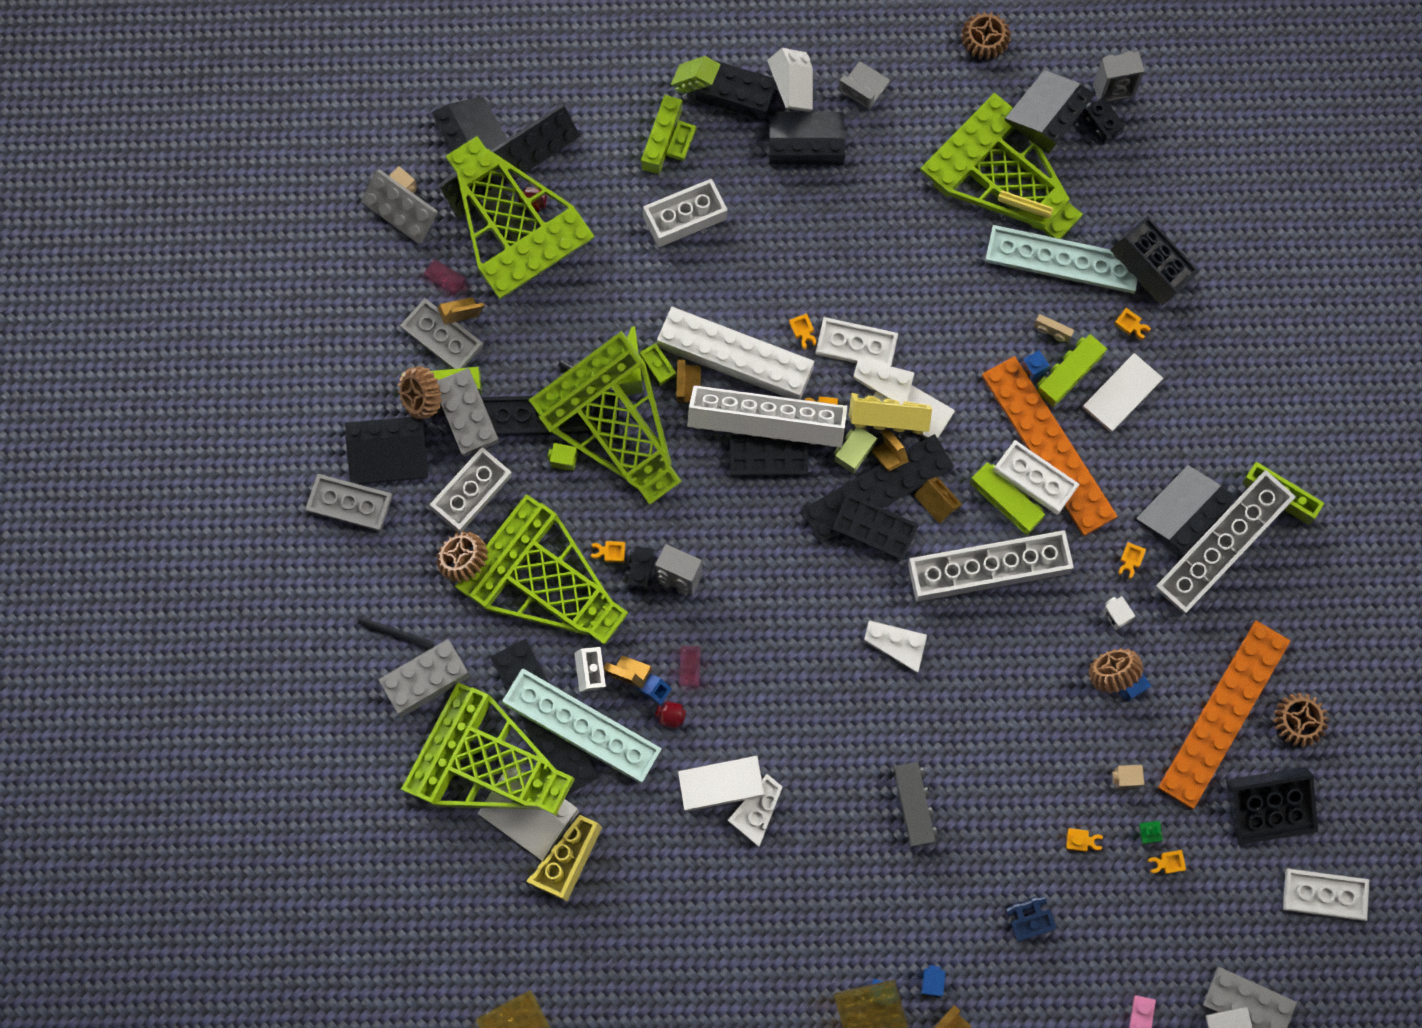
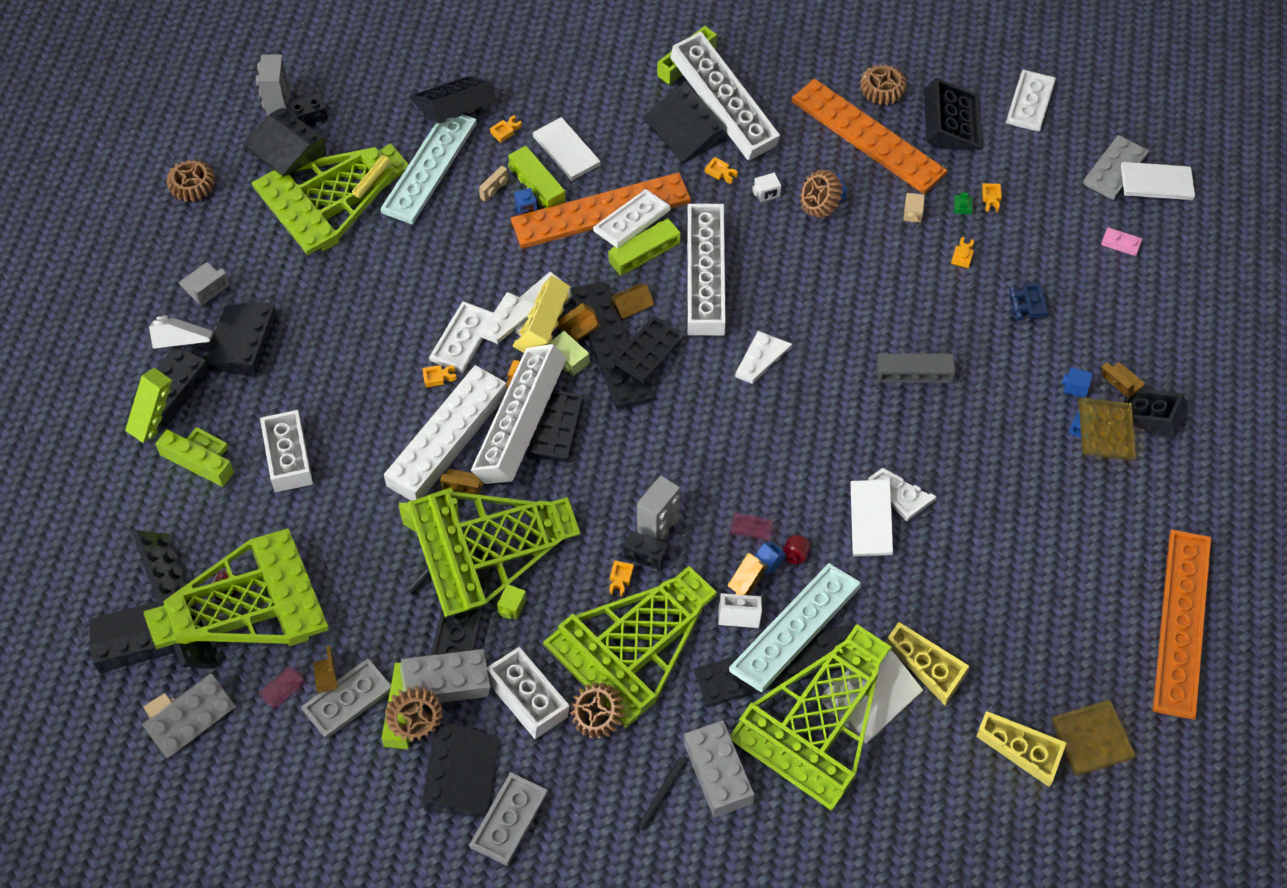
camera: 80 degrees left, 15 degrees down
(493, 962) = (1023, 746): none -> light yellow wedge

